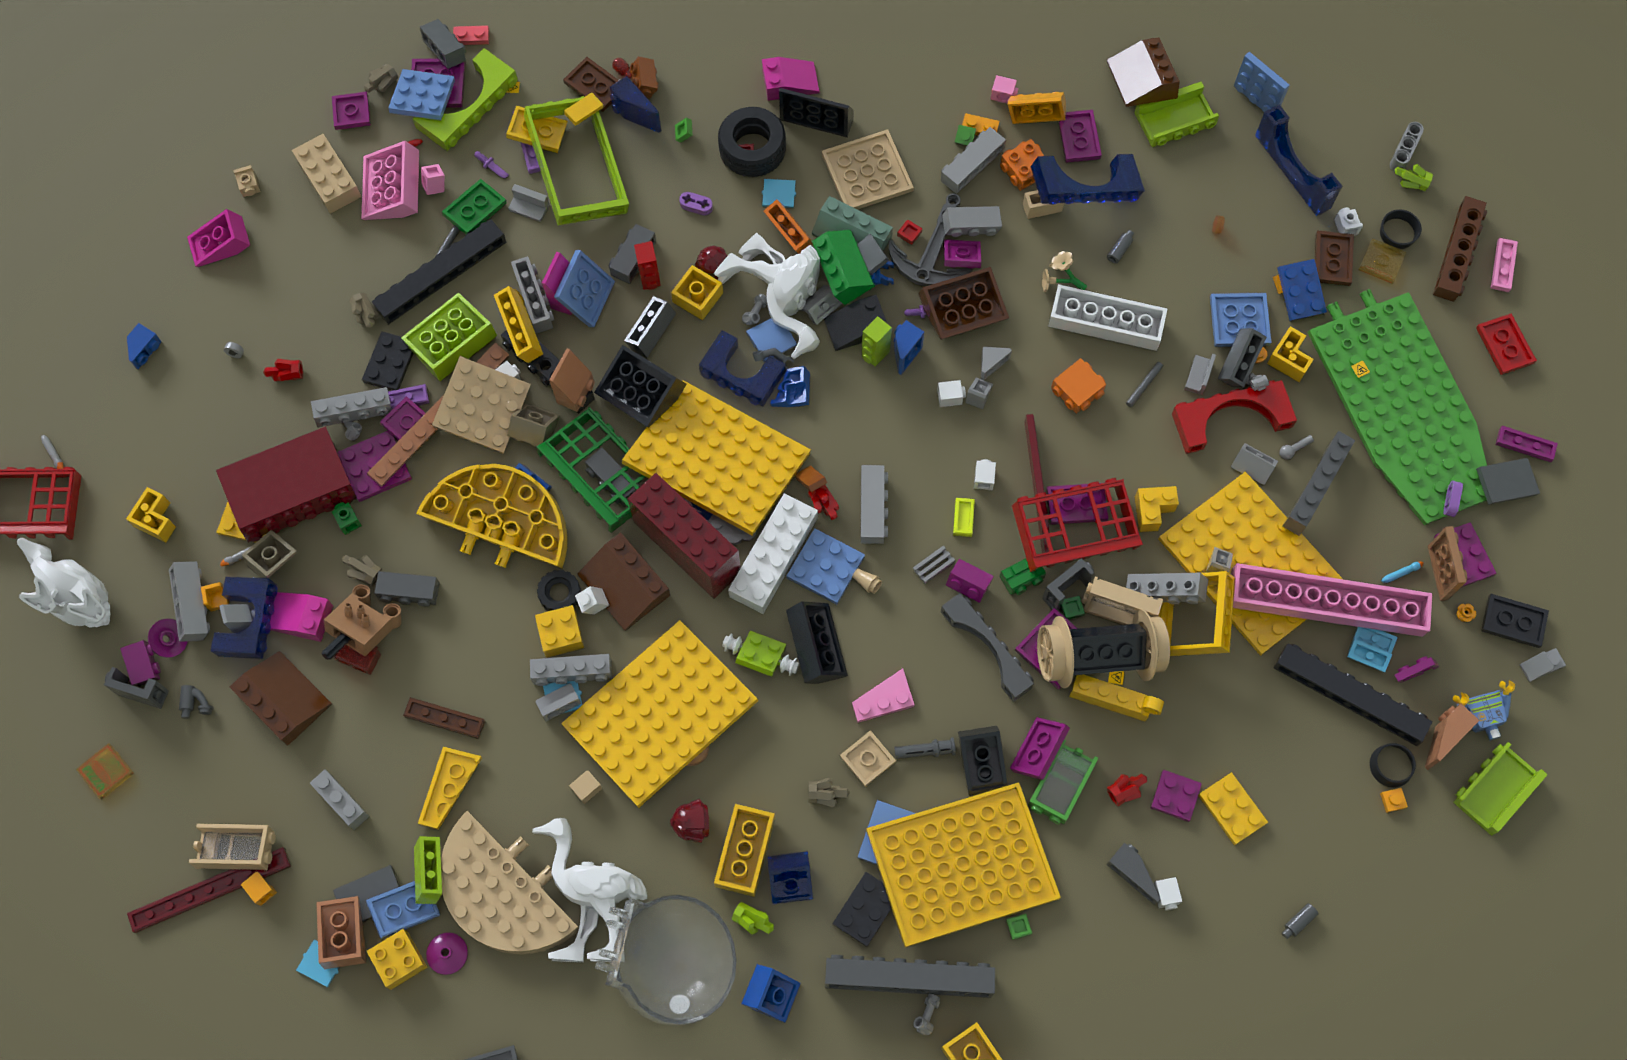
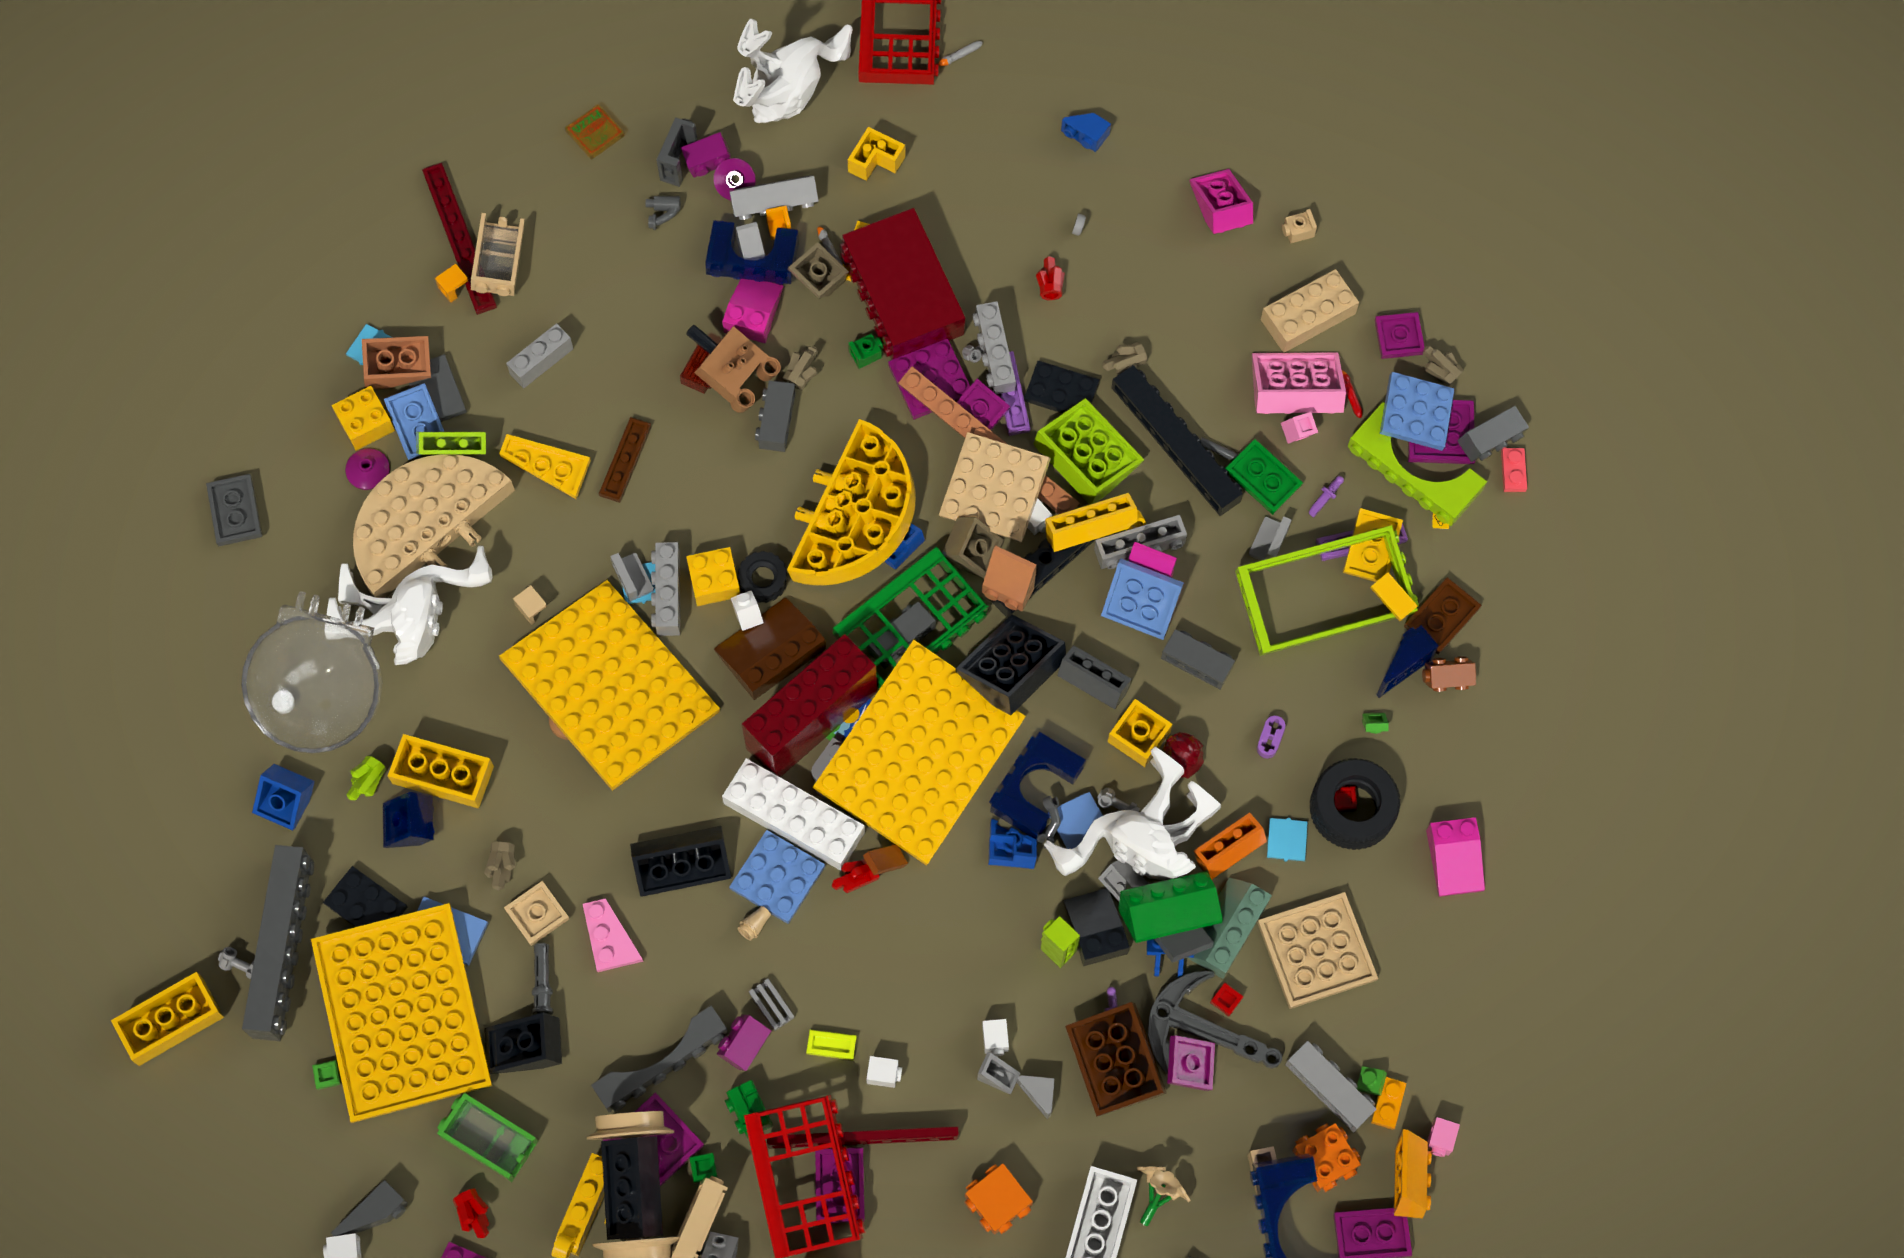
camera: 90 degrees right, 0 degrees up
(281, 697) = (660, 293): reddish brown slope -> none
(621, 67) = (1469, 647): clear red cylinder -> none
(647, 265) = (1170, 671): red brick -> none
(691, 821) = (478, 712): dark red helmet -> none
(760, 653) = (670, 796): lime plate -> none
(815, 112) = (1400, 885): black slope -> none
(872, 504) = (849, 932): light grey brick -> none
(907, 344) = (1057, 981): blue slope -> none
(972, 221) = (1236, 1078): light grey brick -> none
(1039, 748) = (527, 1110): magenta plate -> none
(1079, 571) = (717, 1139): dark grey panel -> none

